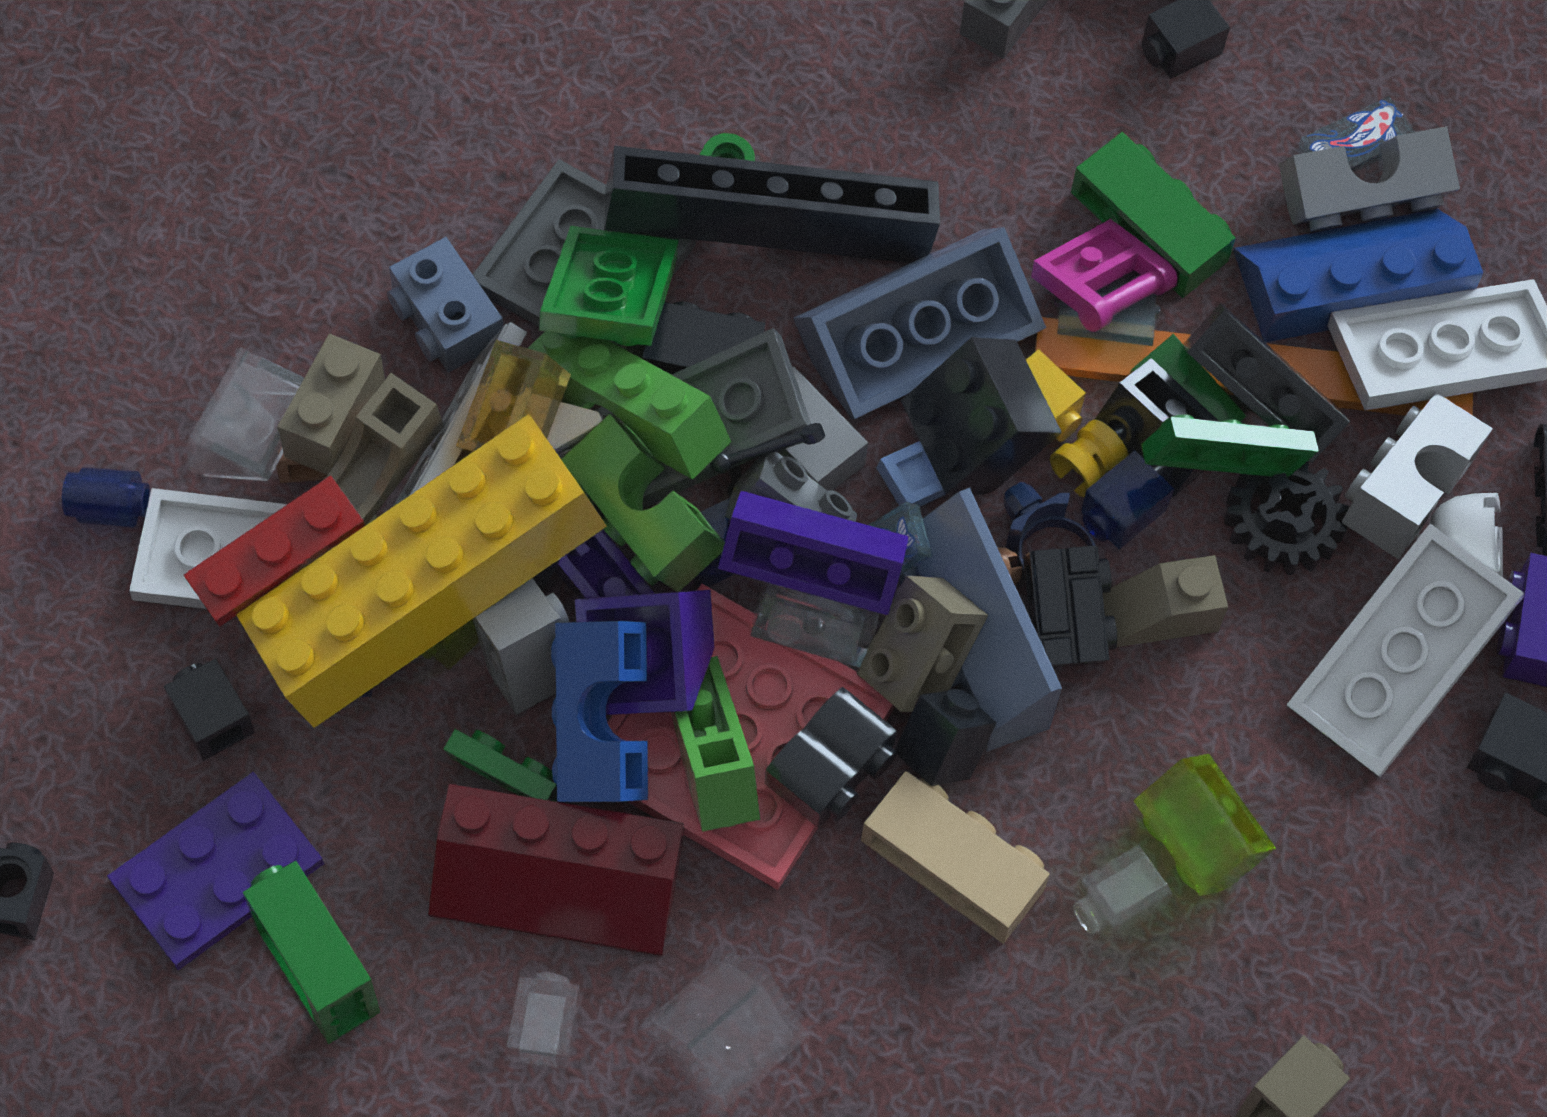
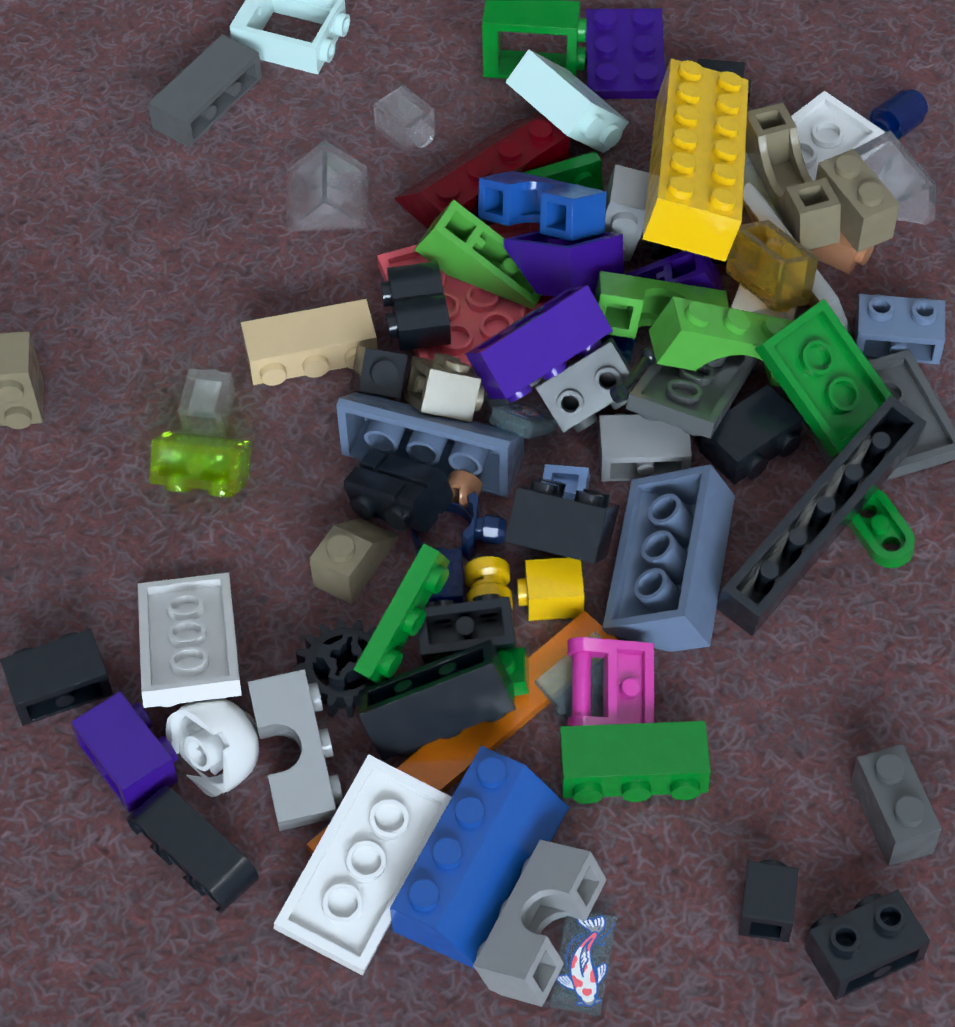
camera: 135 degrees right, 10 degrees down
(274, 550) = (770, 107): red plate -> none
(391, 829) = (567, 102): none -> light aqua brick

